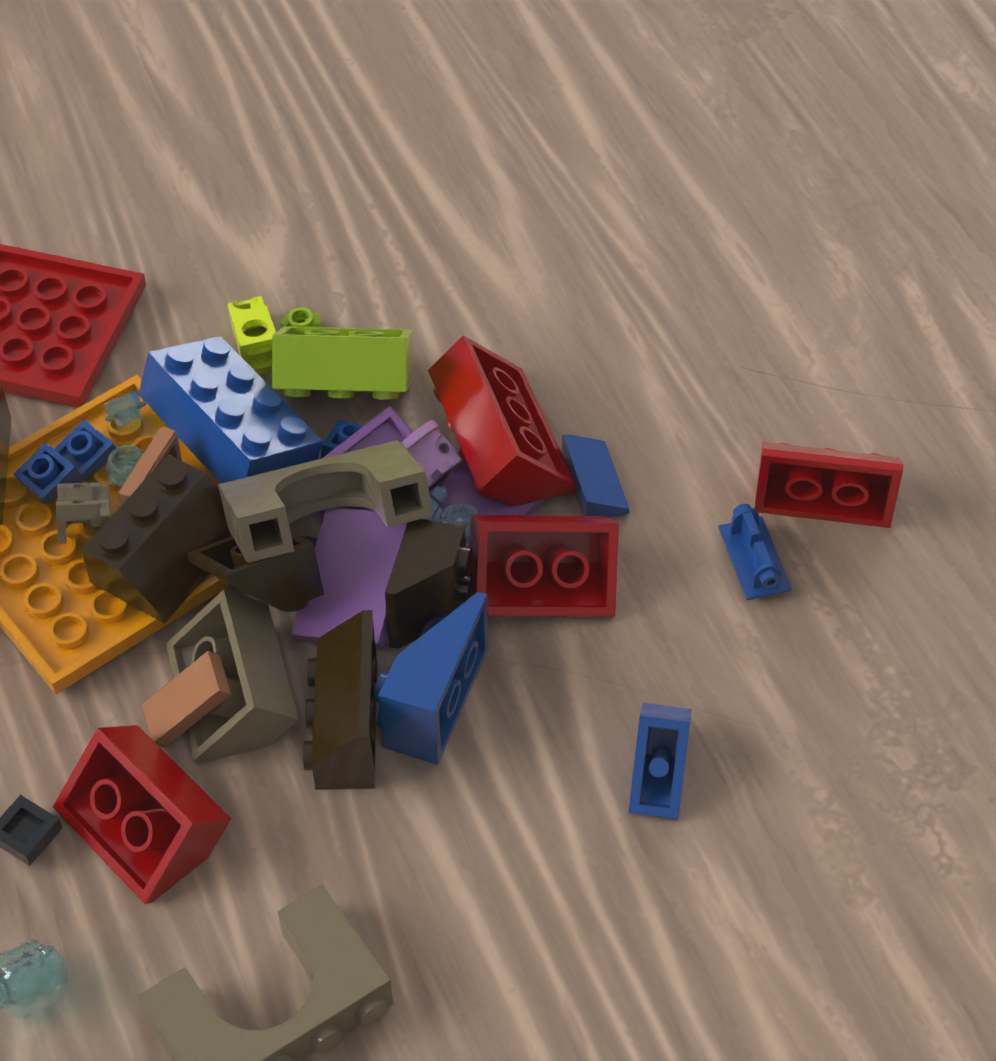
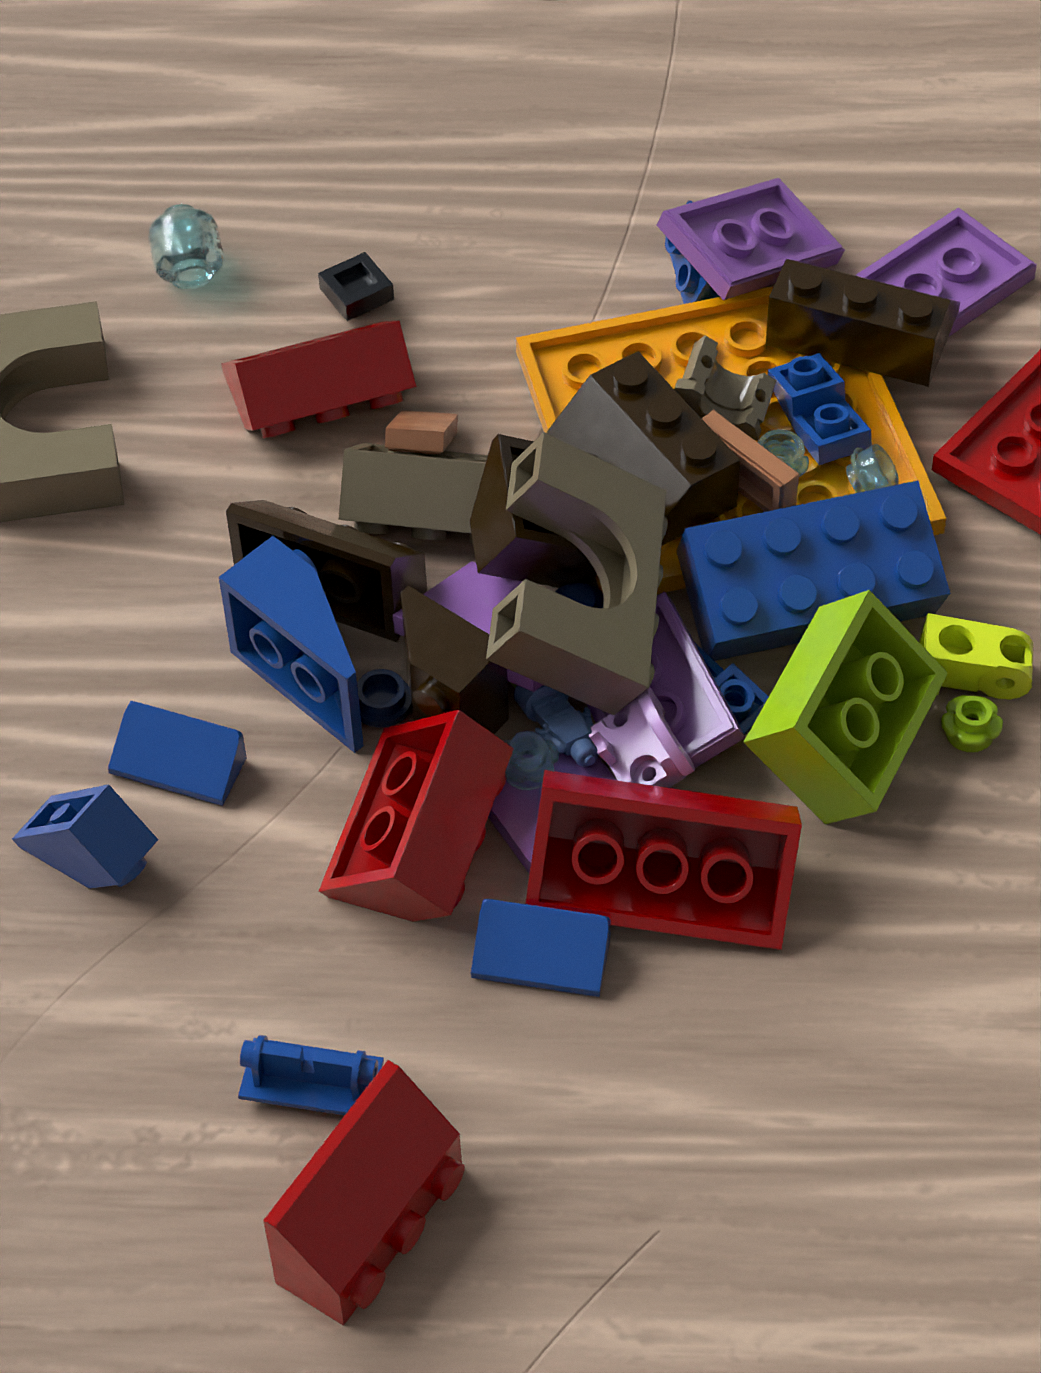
camera: 115 degrees right, 0 degrees up
(556, 744) = (177, 753): none -> blue slope

